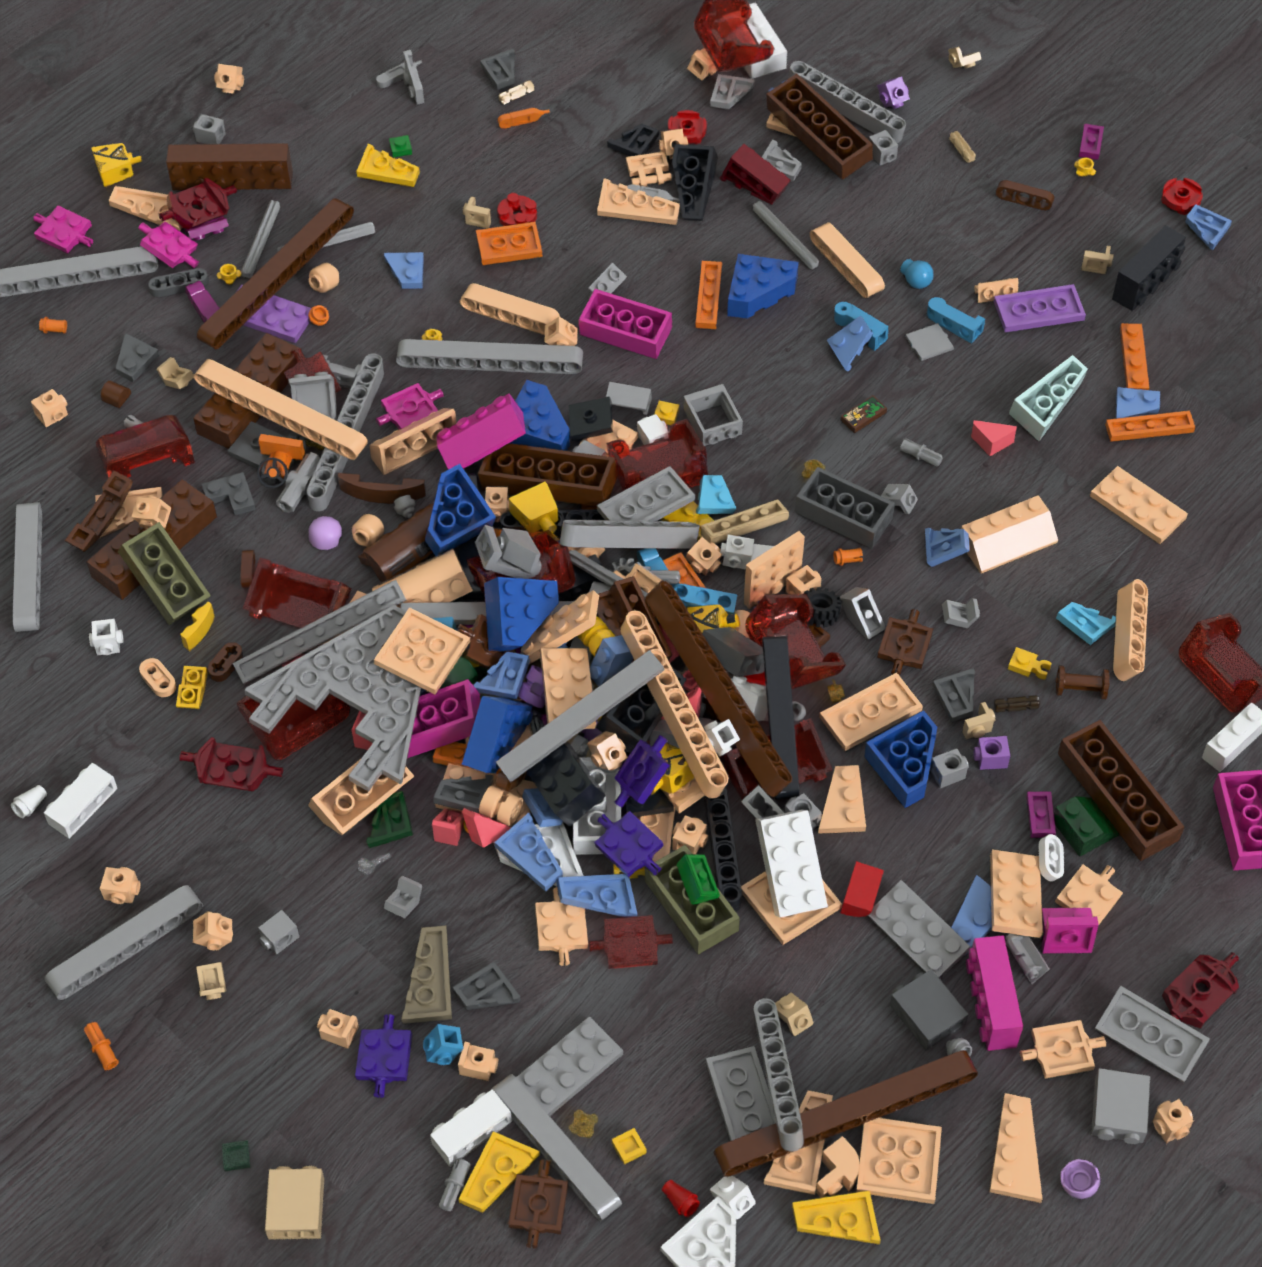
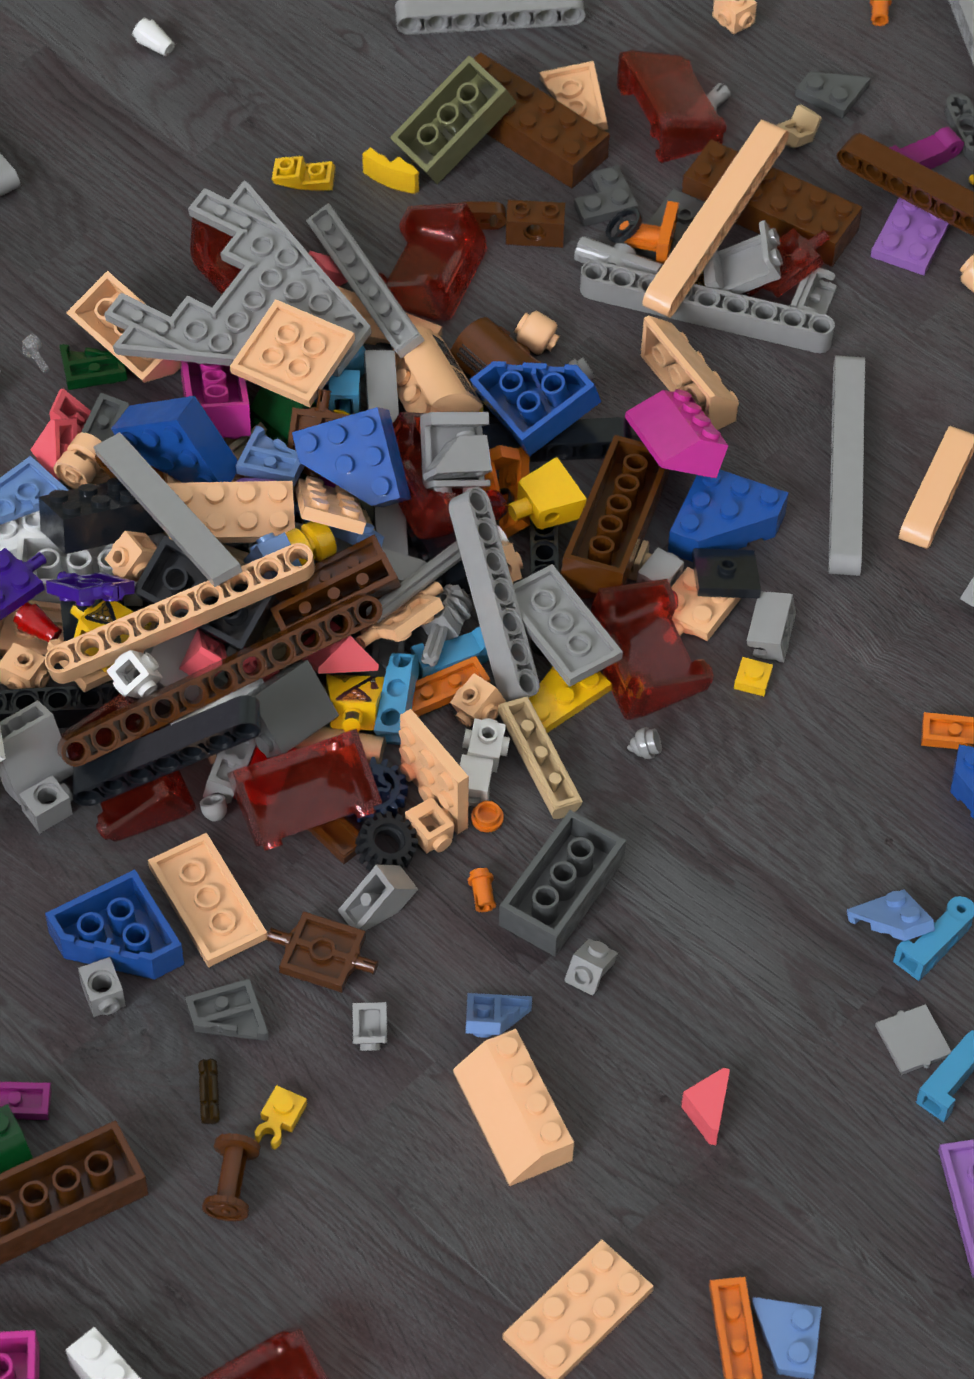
camera: 90 degrees right, 0 degrees up
(80, 800) = (148, 80): white brick -> none
(102, 513) = (556, 66): reddish brown slope -> none
(105, 637) = (374, 83): white brick -> none
(114, 393) = (768, 74): reddish brown brick -> none
(119, 885) = (26, 117): light nougat brick -> none
(150, 511) = (536, 92): light nougat brick -> none
(159, 678) = (318, 139): light nougat plate -> none
(215, 758) = (176, 199): dark red plate -> none
(224, 661) = (341, 202): reddish brown beam -> none
(261, 530) = (535, 223): none -> reddish brown brick
(318, 315) = (914, 273): orange plate -> none
(324, 533) = (538, 291): lavender hair -> none
(380, 492) = (607, 323): reddish brown slope -> none
(408, 406) = (751, 375): dark pink plate -> none
(432, 334) = (881, 406): yellow plate -> none
(497, 500) = (579, 463): light nougat brick -> none
(560, 333) = (885, 532): light nougat brick -> none
(625, 323) = (911, 620): dark pink brick -> none
(651, 430) = (713, 648): white brick -> none
(655, 821) = (35, 622): none -> red cone
(714, 397) = (734, 705): light grey window -> none
(714, 496) = (592, 724): medium azure wing -> none
(726, 468) = (646, 743): none -> light grey plate
(810, 467) = (645, 848): clear yellow plate -> none
(836, 692) = (241, 857): clear yellow plate -> none
(844, 802) = (66, 860): light nougat wing -> none
(863, 414) = (757, 932): tile -> none
(921, 452) = (679, 1002): light grey axle -> none
(981, 724) = (177, 1043): tan bracket -> none
(996, 745) = (124, 1058): medium lavender brick -> none
(1044, 401) = (786, 1190): light aqua wedge -> none
(1085, 622) = (346, 1202): medium azure wing -> none
(1130, 630) = (306, 1263): light nougat beam -> none
(1134, 356) = (892, 1347): orange plate -> none

